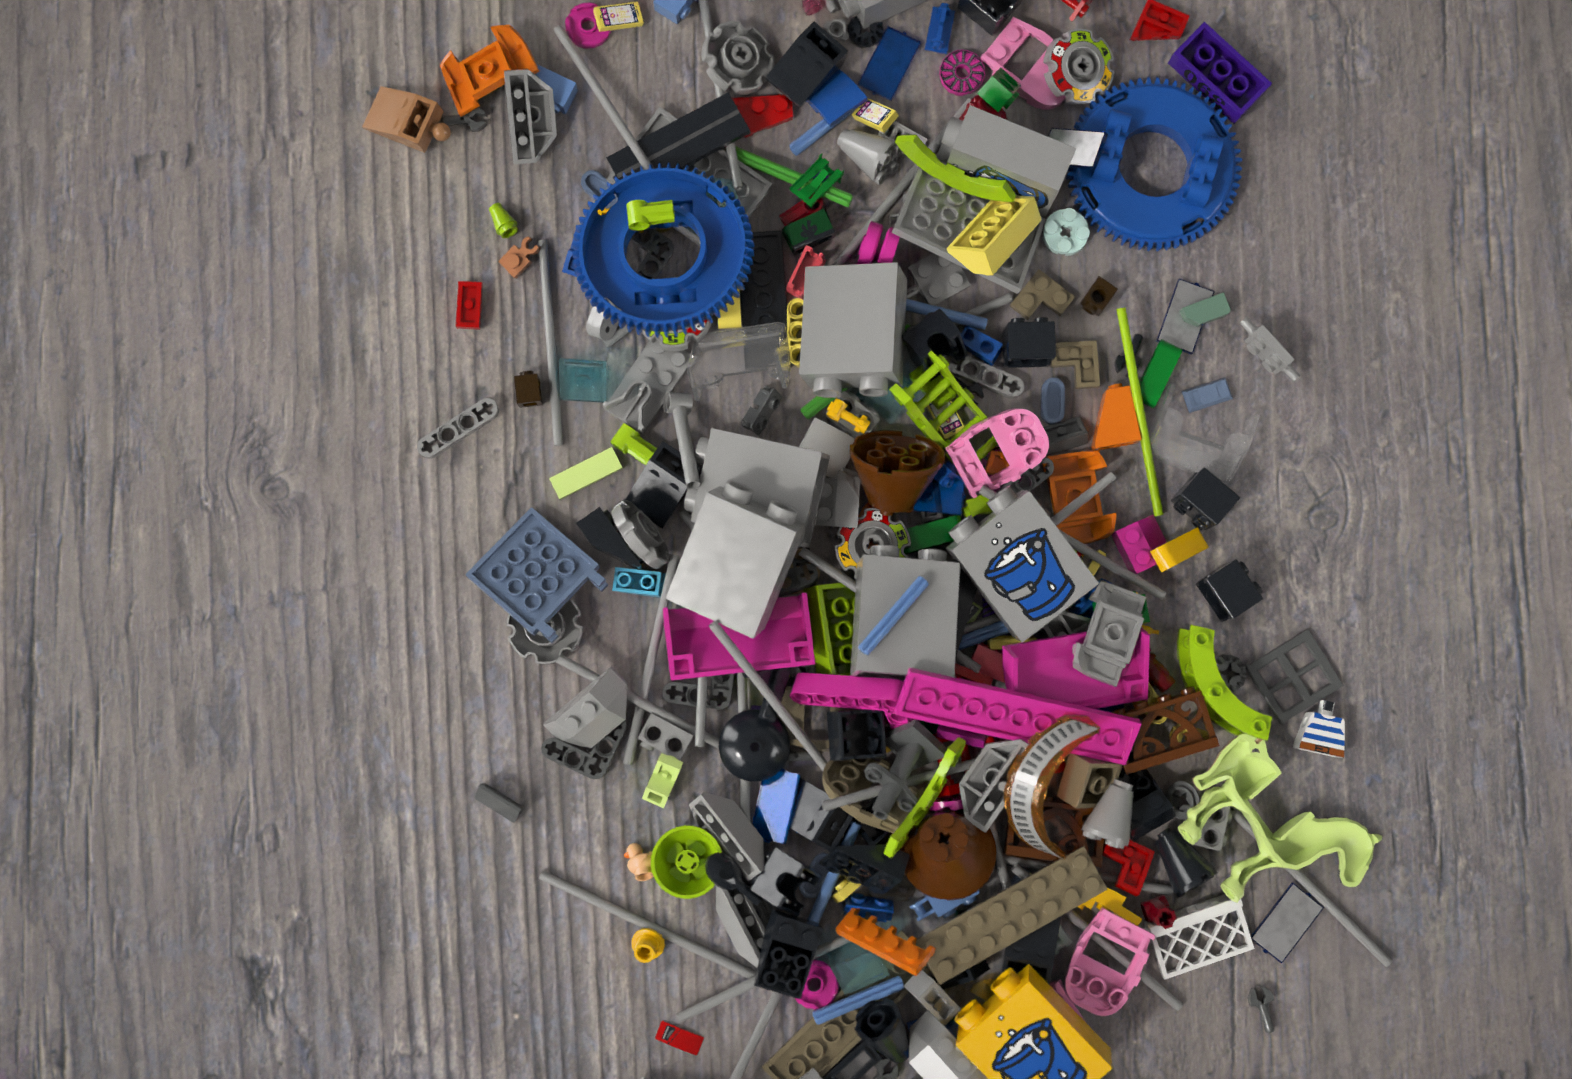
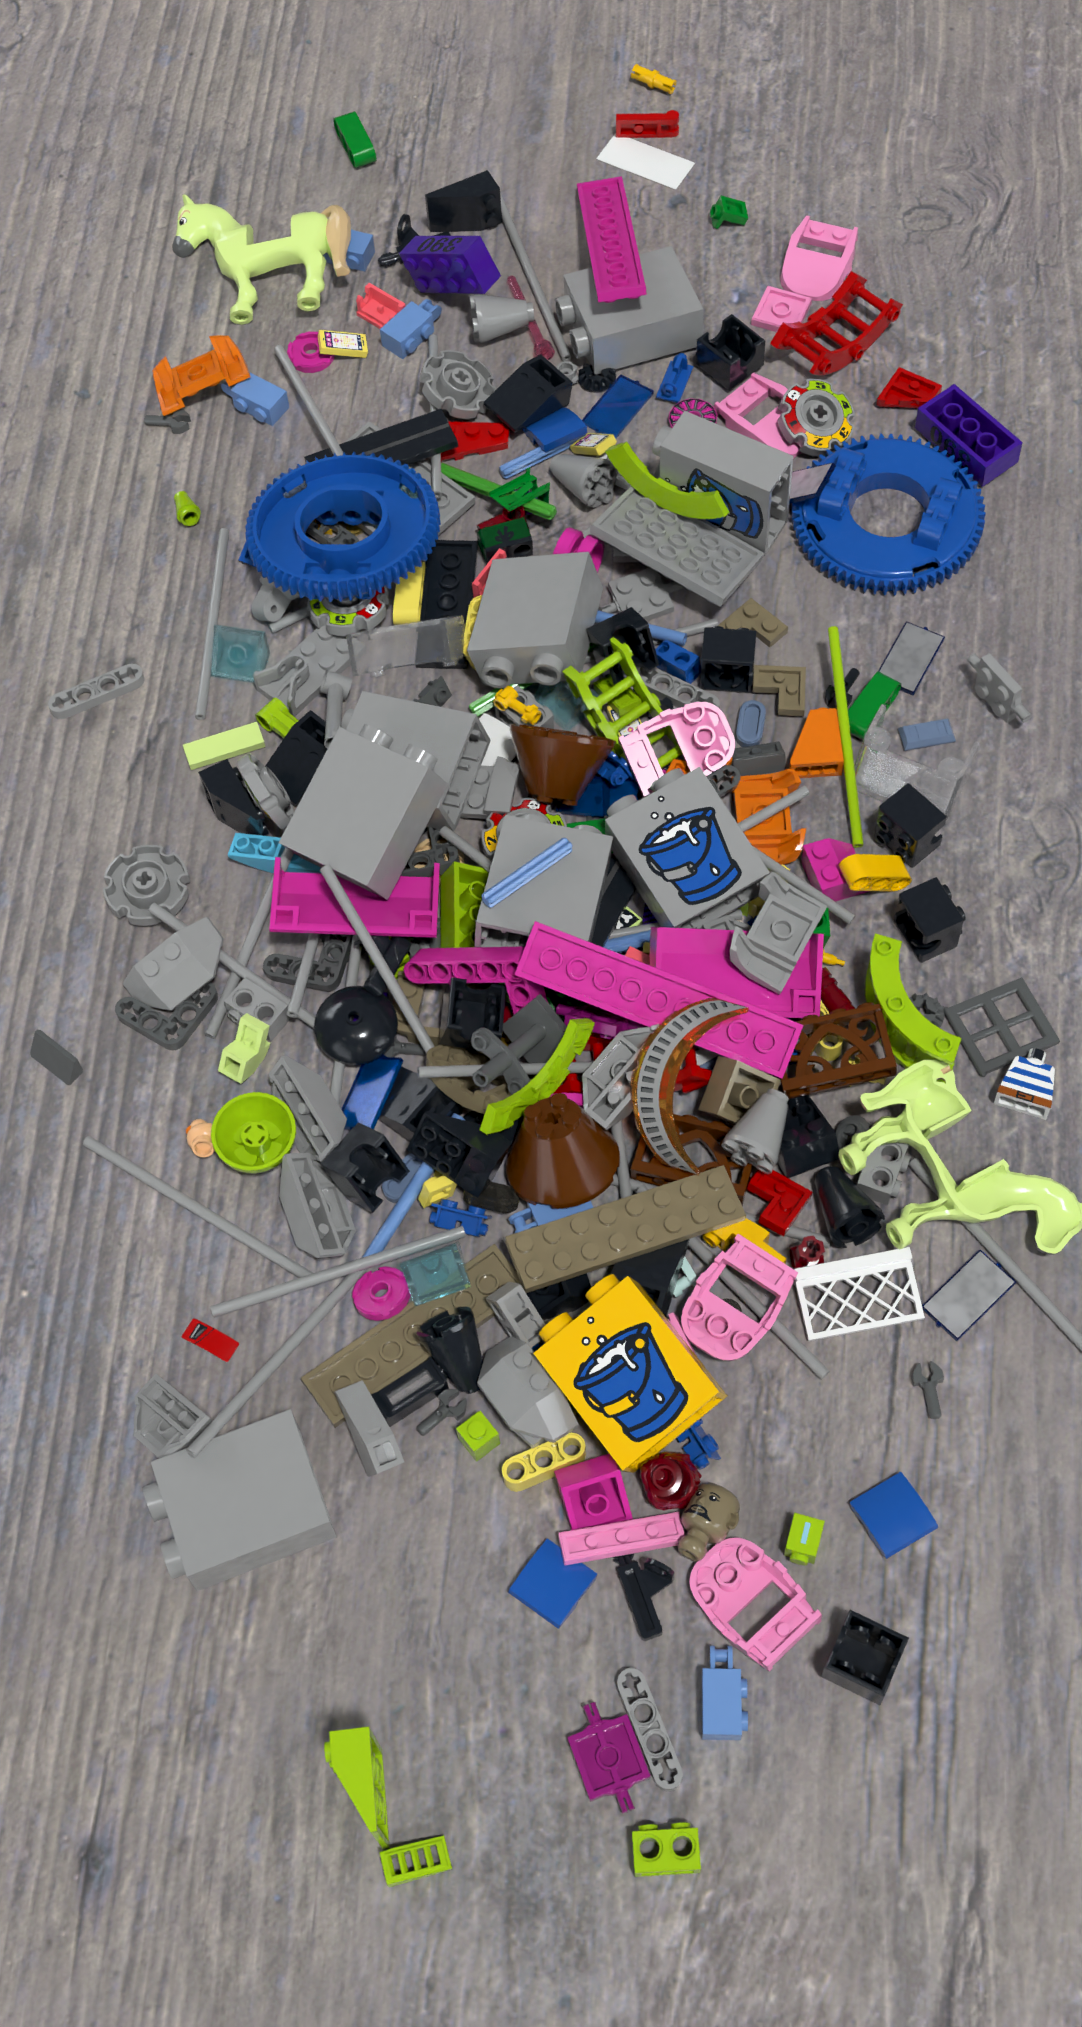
camera: 20 degrees right, 20 degrees down
(406, 118) = (109, 412): medium nougat slope -> none
(469, 305) = (133, 579): red plate -> none
(517, 259) = (194, 544): nougat plate -> none
(528, 389) = (178, 660): dark brown brick -> none
(529, 115) = (232, 411): light grey wedge -> none
(534, 572) = (146, 827): sand blue plate -> none
(644, 214) = (325, 485): lime piece -> none
(647, 944) = (193, 1227): yellow piece -> none
(727, 875) = (297, 1148): black piece -> none
(787, 953) = (351, 1239): black slope -> none
(858, 1000) = (425, 1311): medium blue axle -> none
(884, 942) = (468, 1237): orange hinge -> none
(995, 234) = (704, 546): light yellow slope -> none
(1000, 90) = (727, 418): green brick -> none
(1053, 227) = (785, 556): light aqua plate -> none
(1102, 288) = (813, 627): dark brown brick -> none
(1206, 310) = (931, 650): sand green piece -> none

